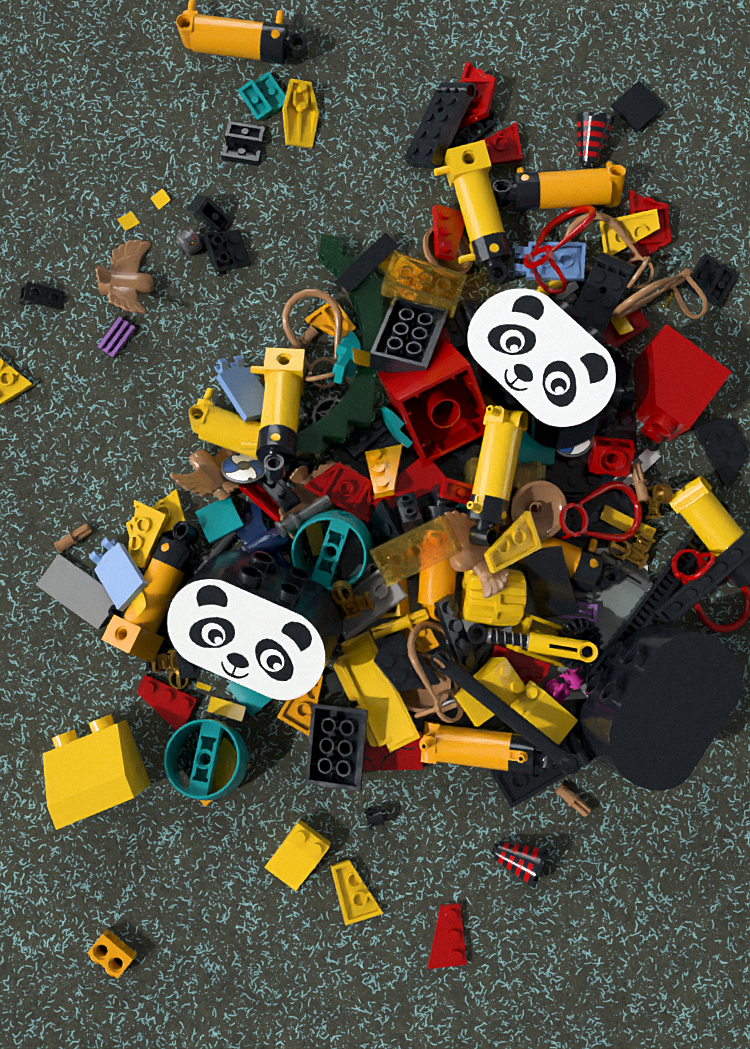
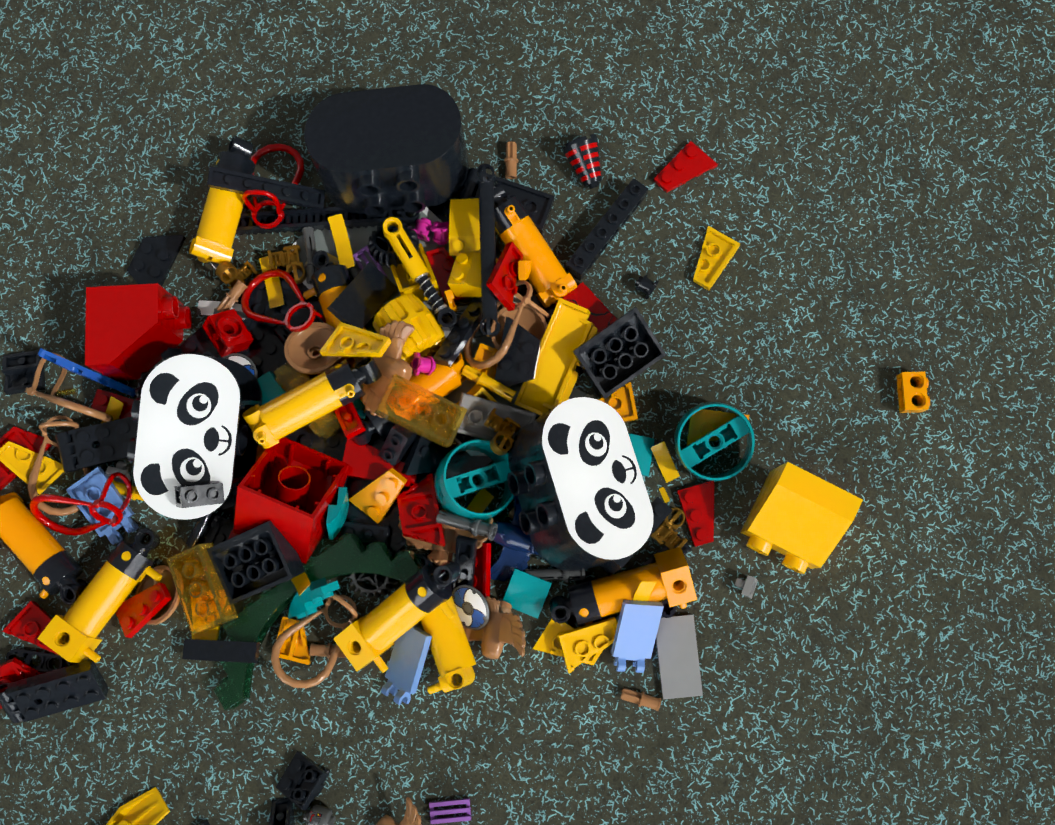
camera: 130 degrees left, 5 degrees down
(81, 688) = (748, 586): none -> light grey tile
(298, 855) = (722, 318): yellow slope -> none
(448, 827) = (606, 229): none -> black brick
(453, 582) = (422, 364): none -> dark pink brick
(465, 728) = (524, 269): none -> light orange tile
(471, 706) = (504, 276): none -> red wing
(486, 330) = (199, 495): none -> bracket
(494, 650) = (449, 298): none -> light orange tile
(615, 604) = (341, 240): none -> yellow sticker
(676, 320) = (85, 372): none -> blue tile

